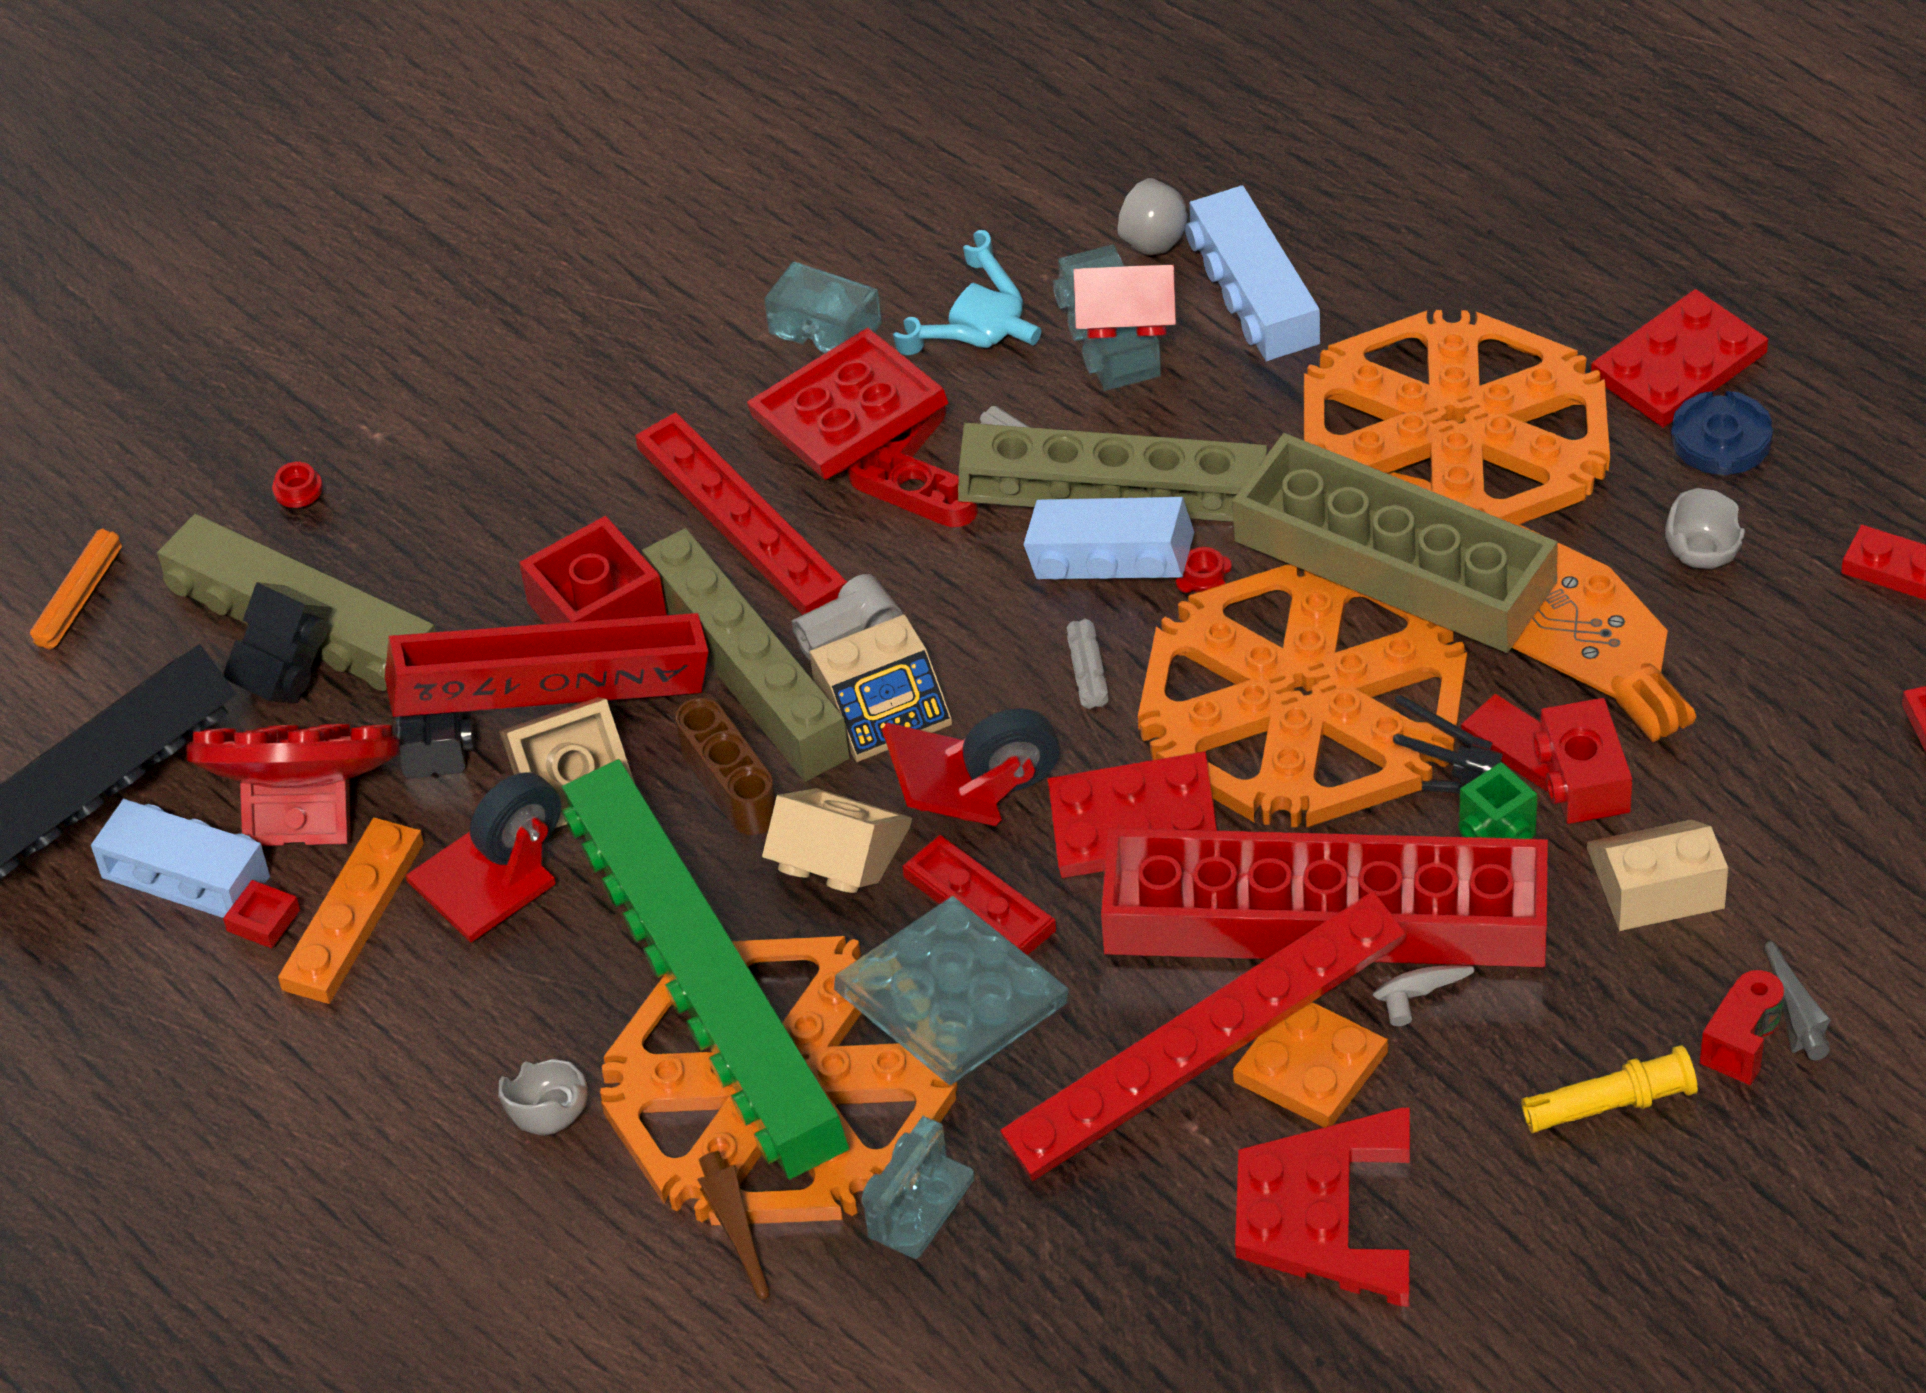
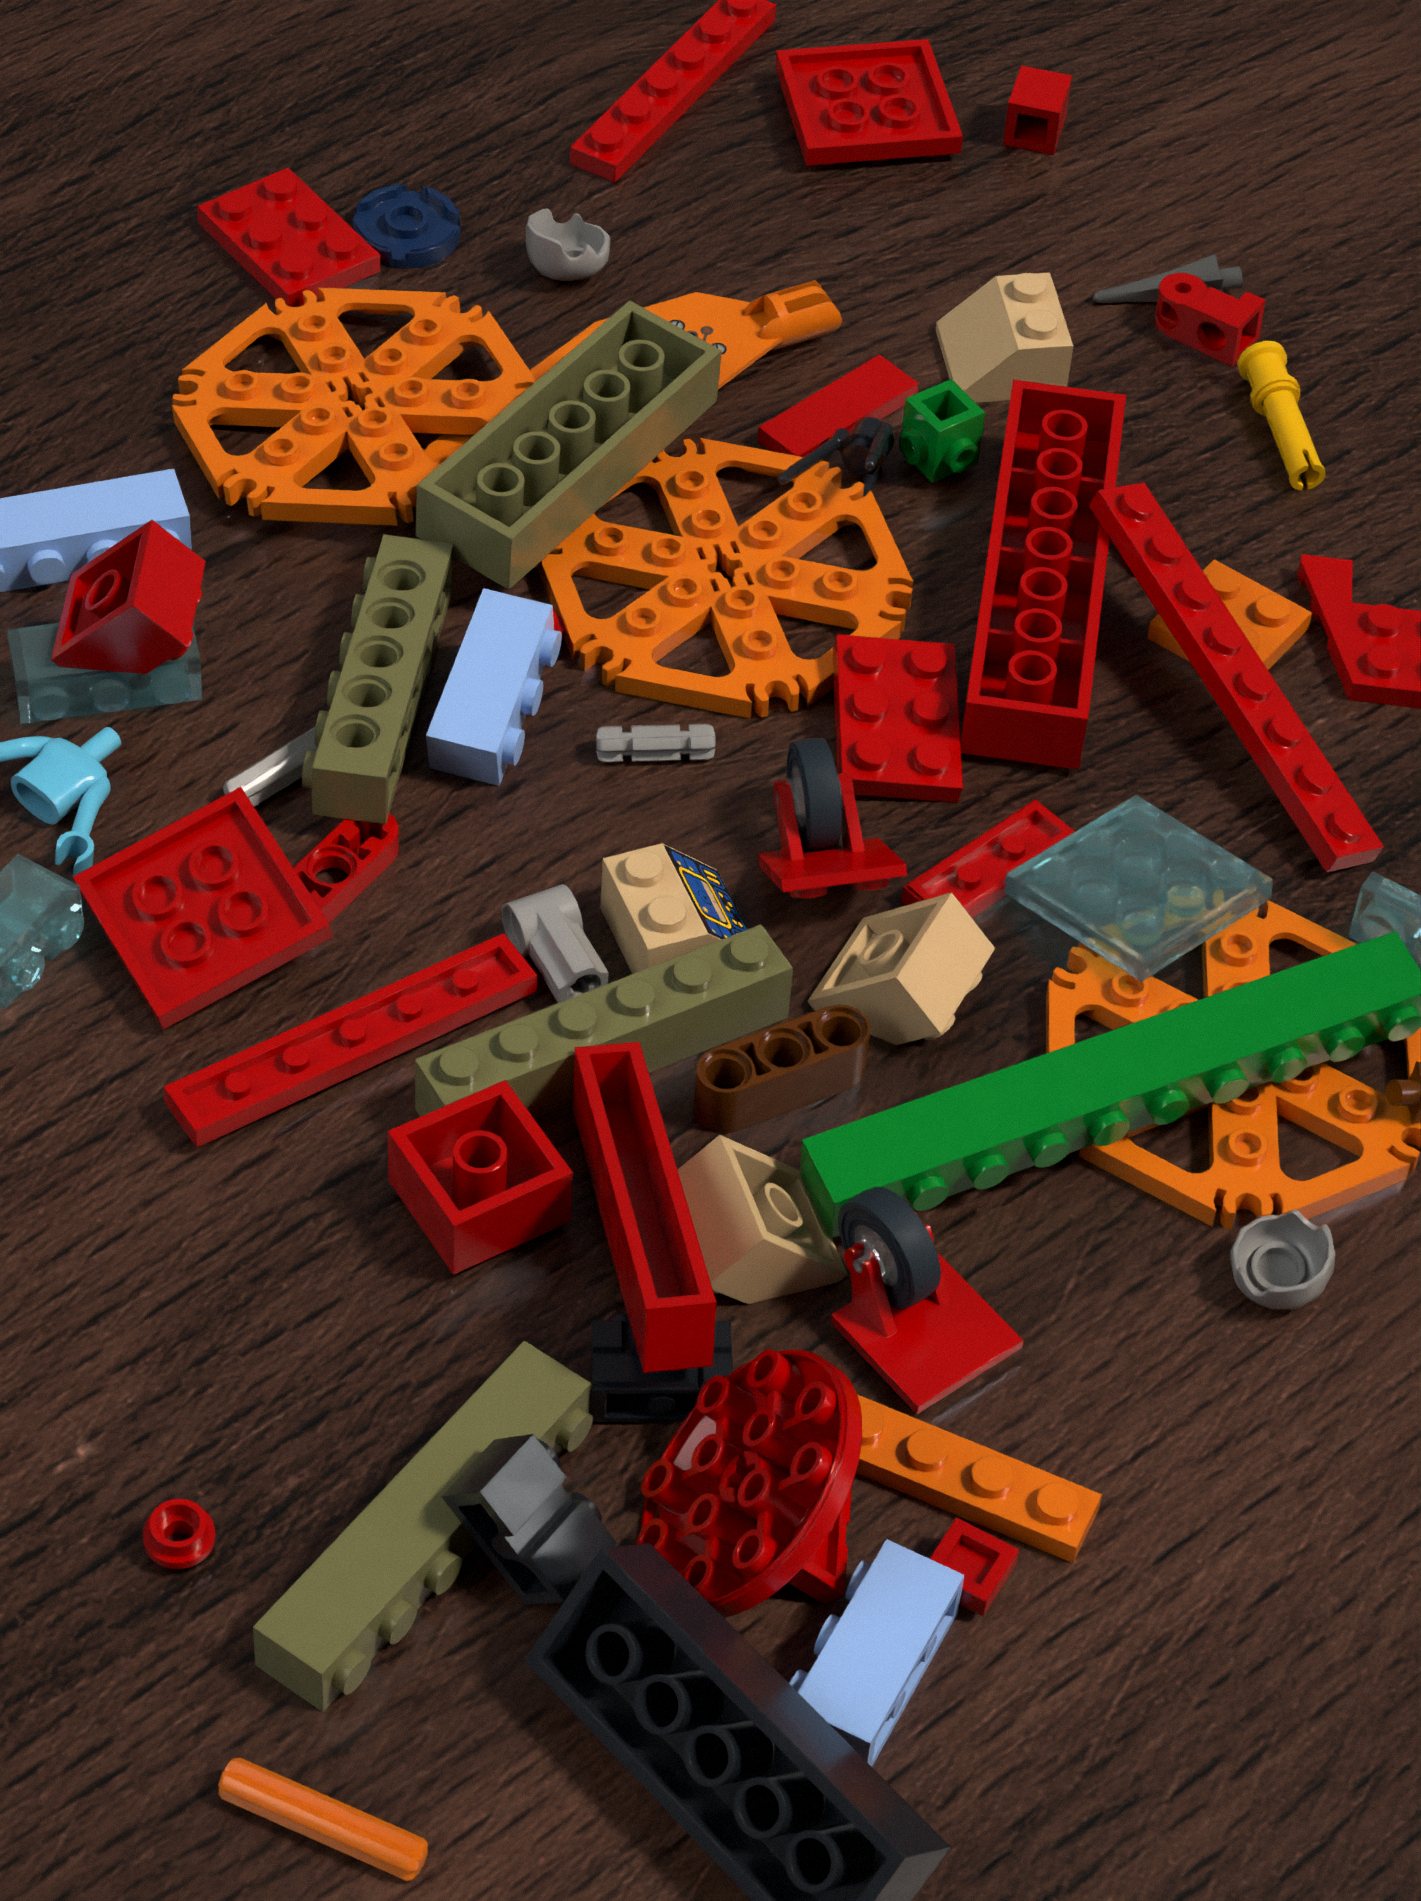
camera: 95 degrees left, 0 degrees up
(1583, 761) = (884, 355): red brick -> none

